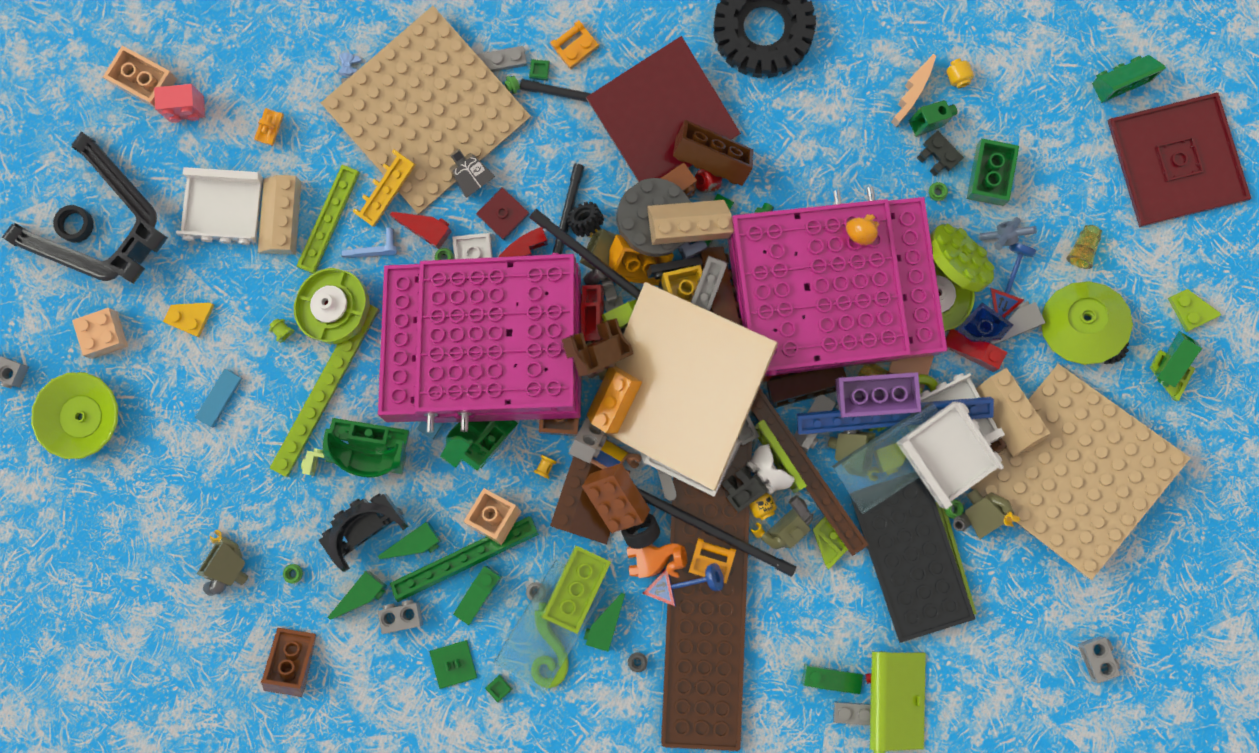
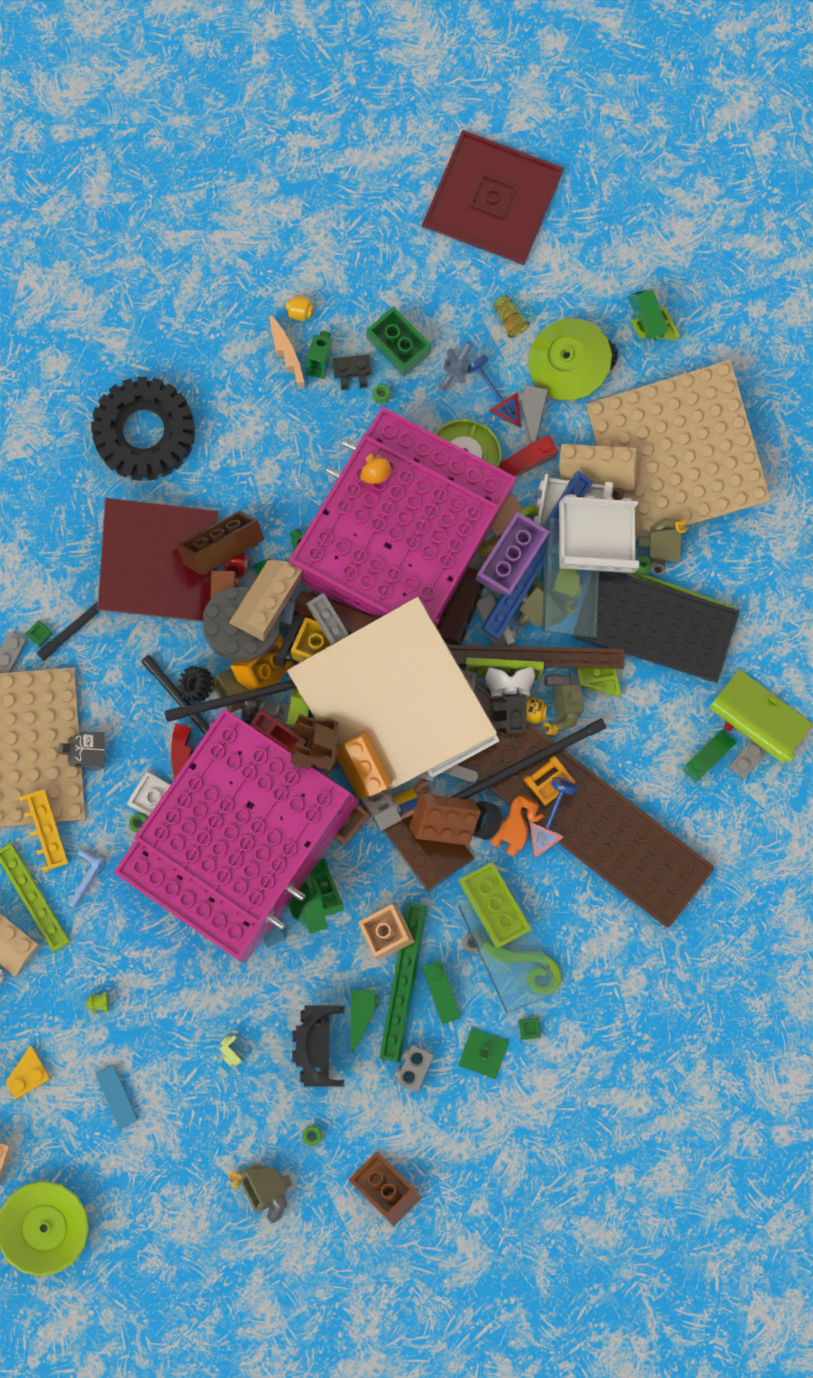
camera: 65 degrees left, 5 degrees down
(319, 399) = (175, 1001): lime plate -> none
(331, 306) = (127, 938): lime piece -> none
(364, 591) = (371, 1085): green slope -> none
(367, 448) = (254, 996): green piece -> none
(426, 227) = (102, 820): red slope -> none
(502, 213) = (138, 749): dark red plate -> none
(512, 84) = (35, 663): bright green plate -> none
(544, 466) = (375, 862): yellow bush -> none
(576, 50) = (46, 590): light orange plate -> none
(603, 629) = (541, 907): green slope -> none
(632, 666) = (592, 896): dark grey plate -> none
(961, 258) = (450, 414): lime piece -> none
(985, 325) = (516, 435): clear blue slope -> none
(1127, 77) = (399, 187): green slope -> none
(1192, 310) = (617, 274): lime wing -> none

